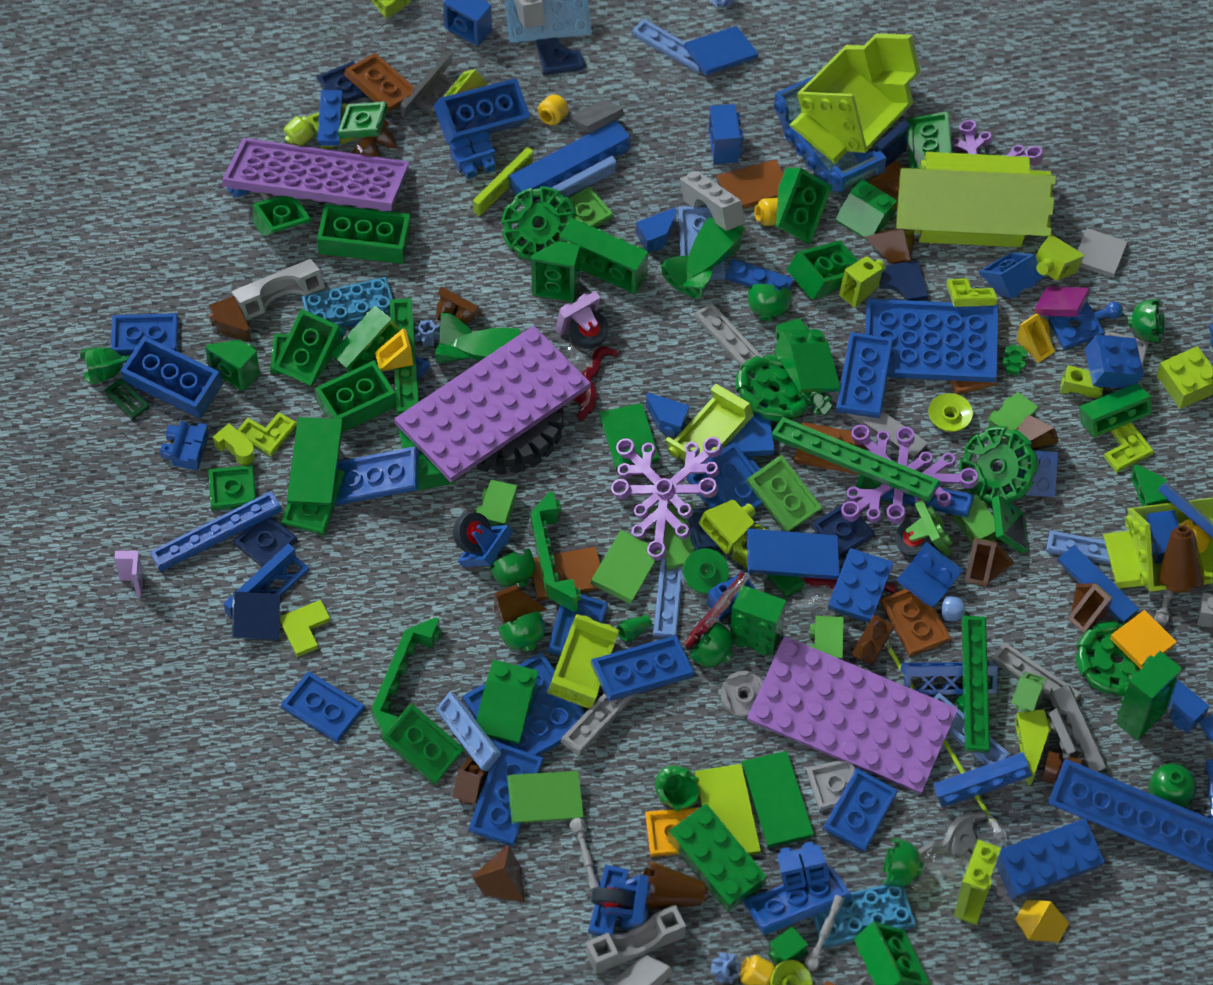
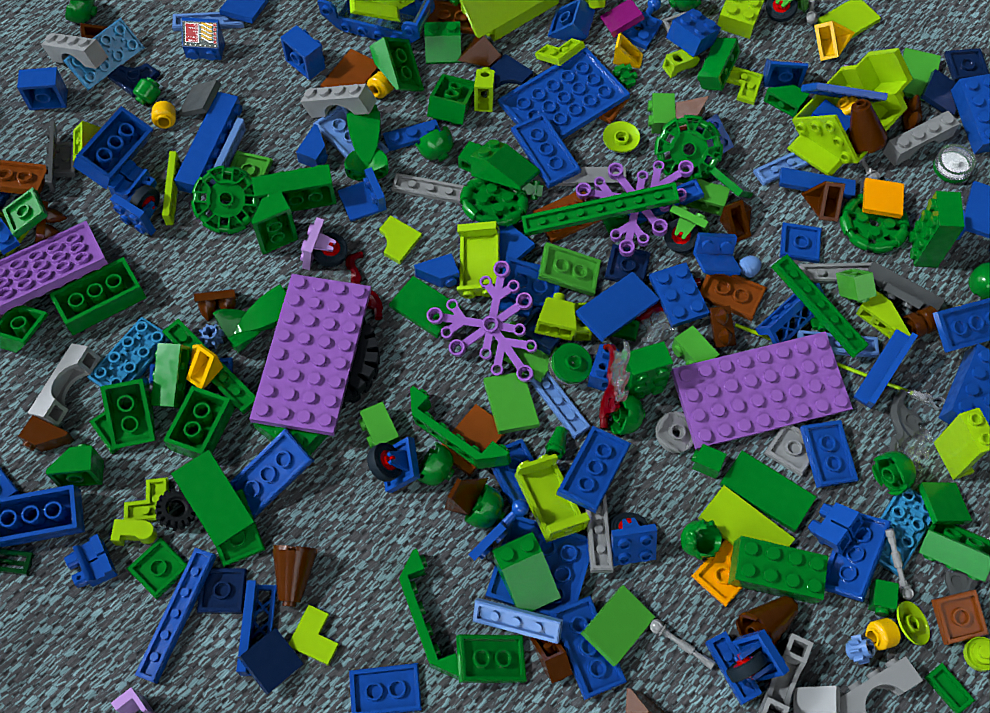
camera: 40 degrees left, 5 degrees up
(268, 454) = (171, 521): none -> black tyre
(329, 564) = (292, 572): none -> reddish brown cone
(459, 180) = (138, 208): none -> blue plate
(511, 651) = (519, 509): none -> blue plate
(556, 78) = (146, 91): none -> green head
(618, 744) = (632, 539): none -> blue plate
(645, 61) = (202, 38): none -> slope
(660, 304) = (363, 198): none -> blue bracket
(661, 363) = (399, 239): none -> lime tile
(747, 736) = (708, 461): none -> green brick
(919, 921) = (944, 503): none -> green tile
(1026, 625) = (800, 242): none -> blue tile
(1171, 461) = (784, 72): none -> blue slope

